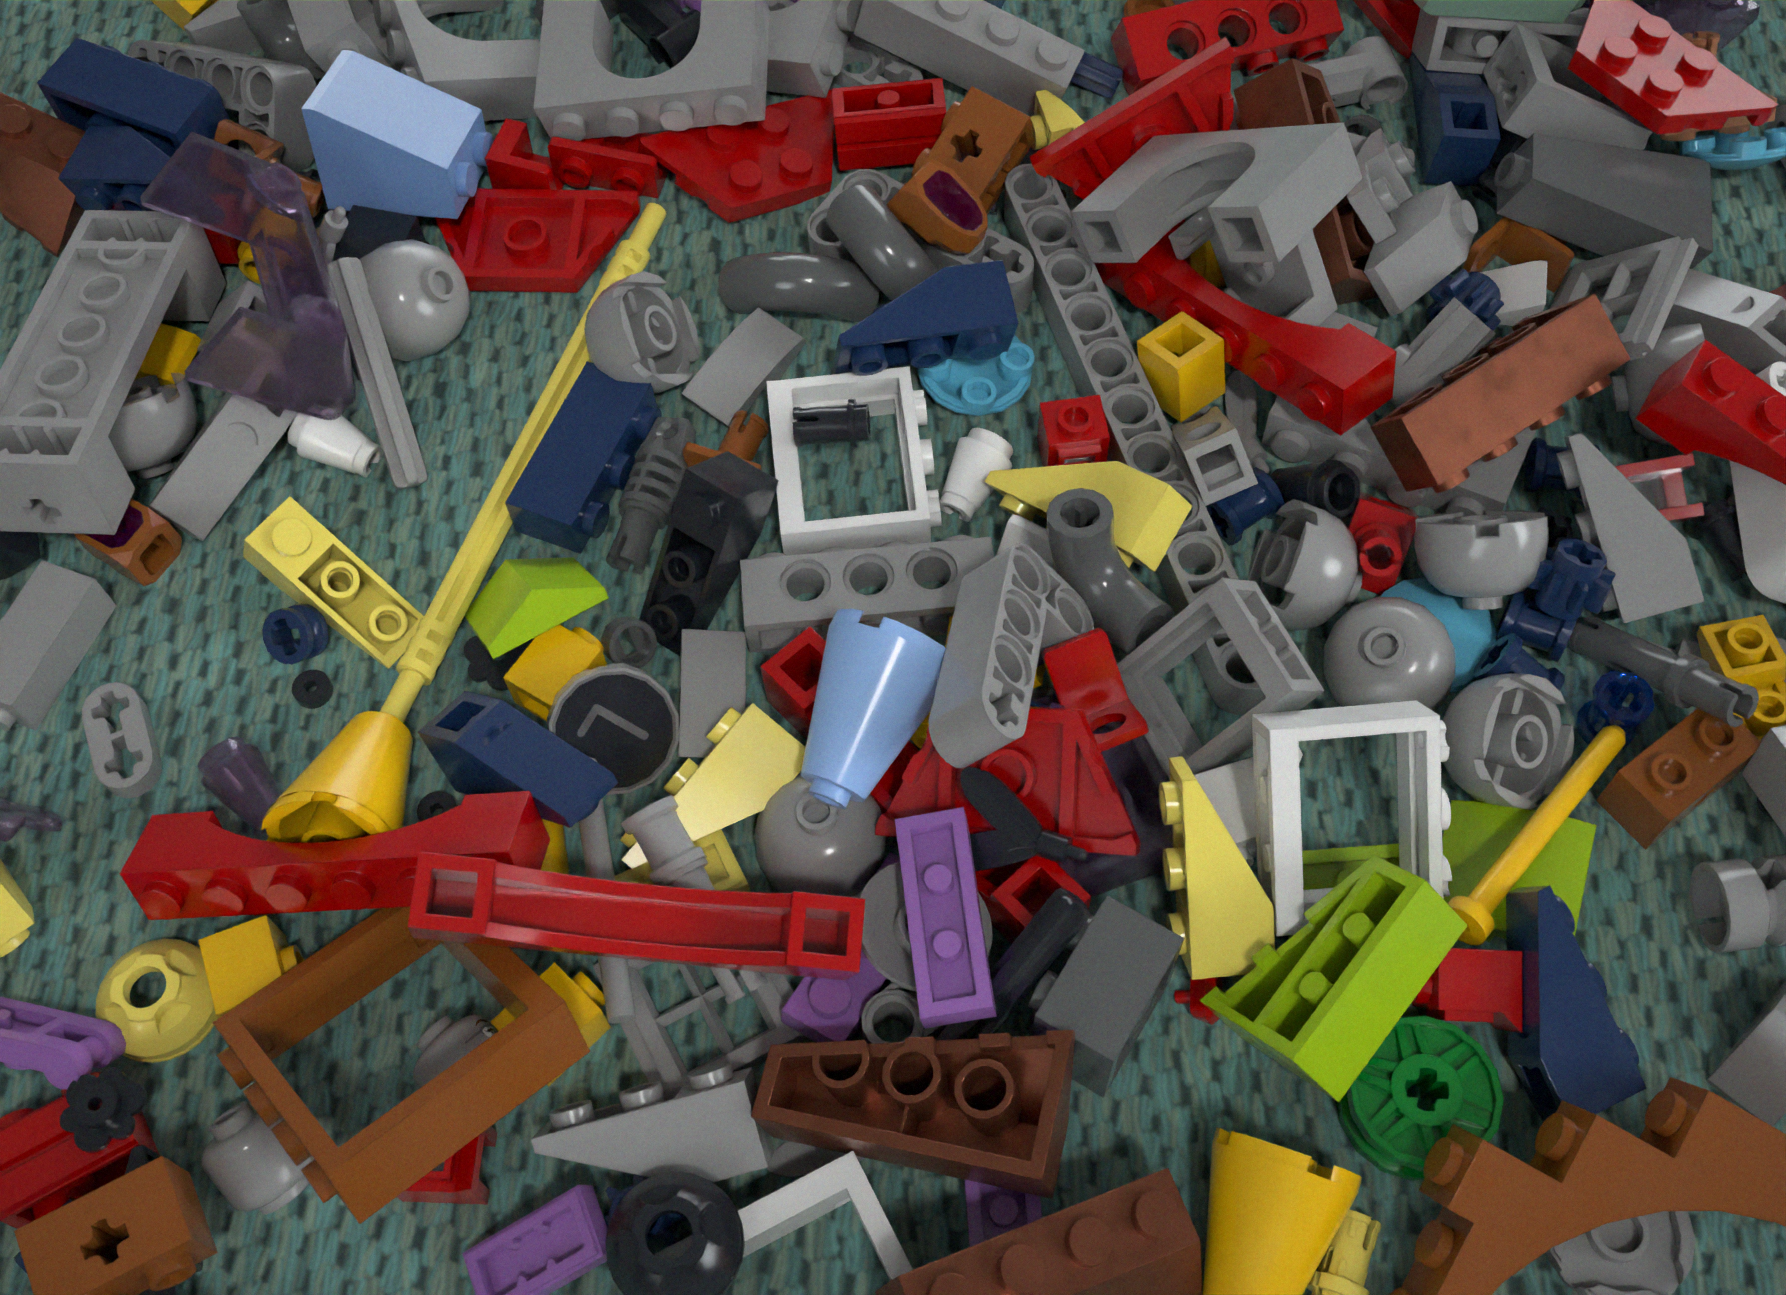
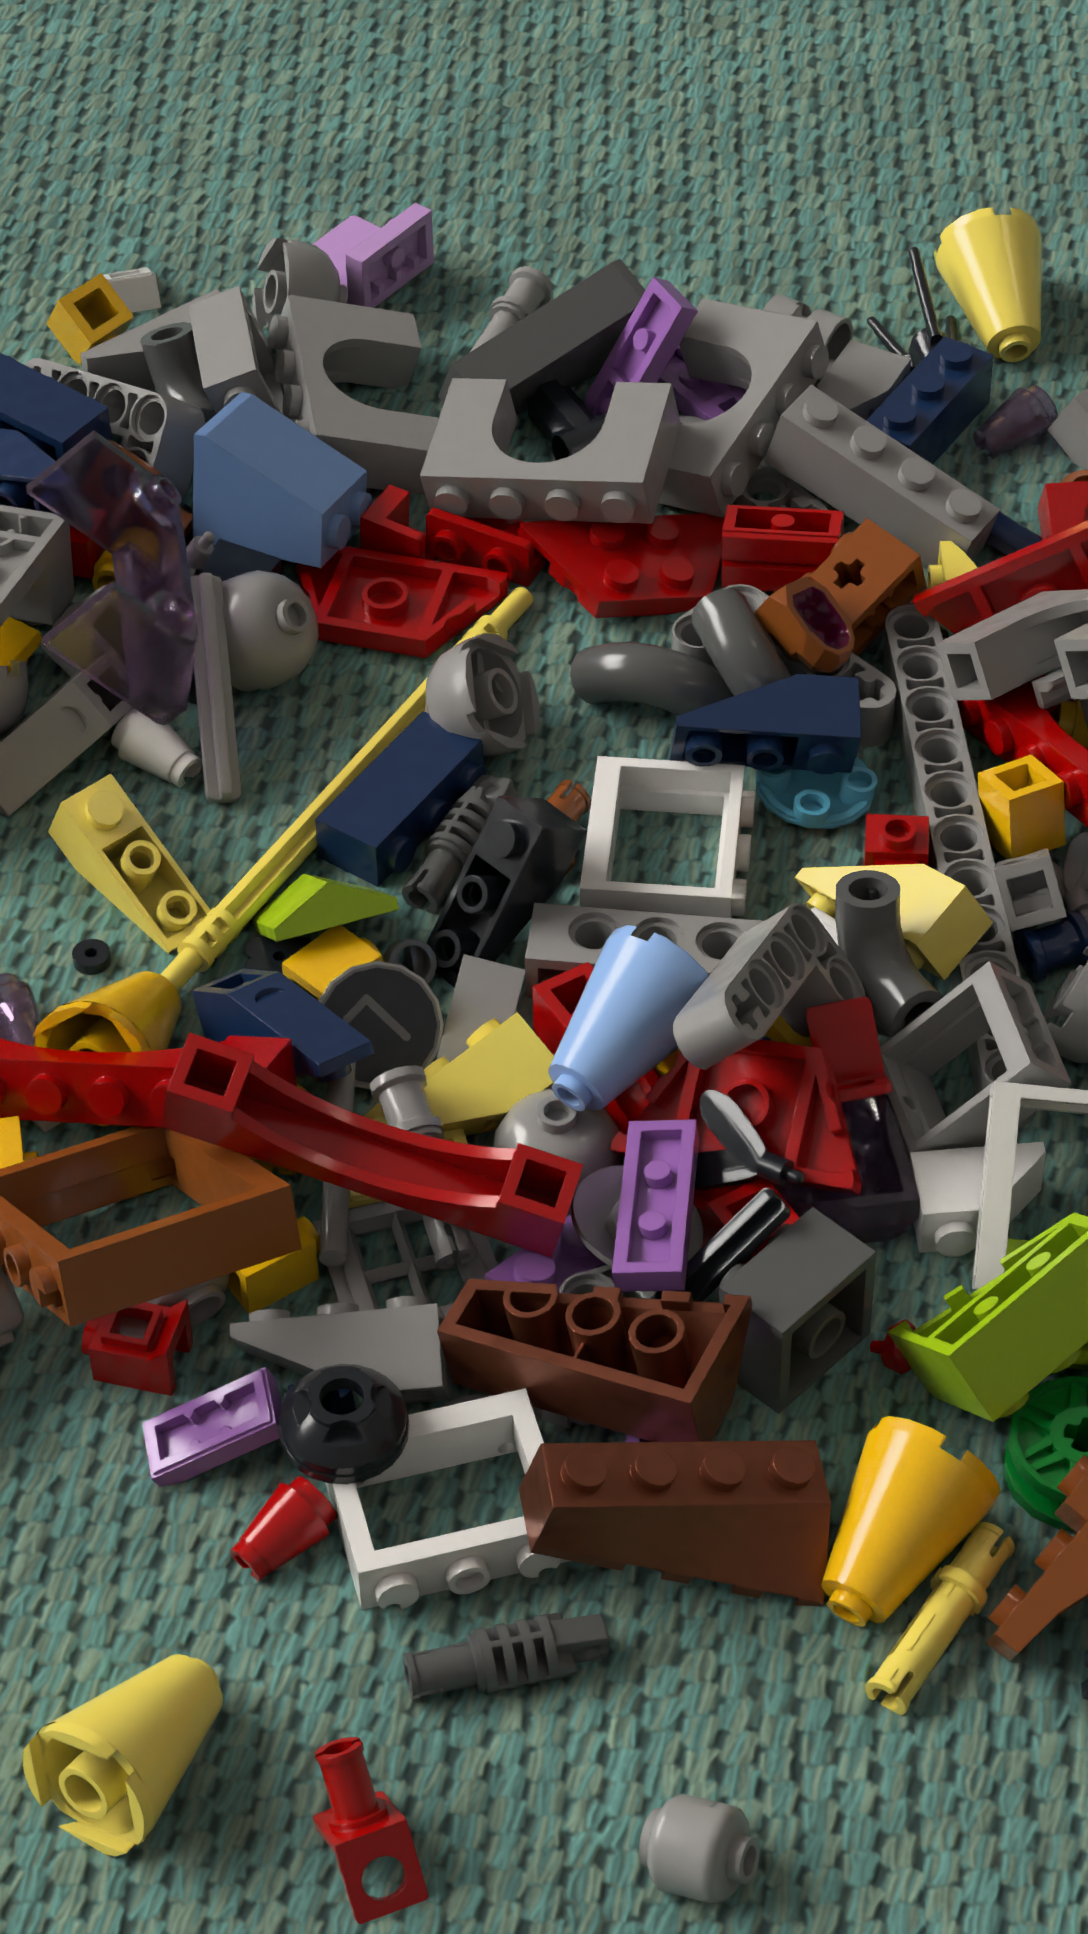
camera: 10 degrees right, 15 degrees down
(279, 639) = (69, 899): dark blue bush -> none
(738, 369) = (572, 744): light grey slope -> none
(832, 424) = (653, 799): black pin -> none
(970, 466) = (777, 884): white cone -> none
(1217, 895) = (928, 1237): light yellow slope -> none

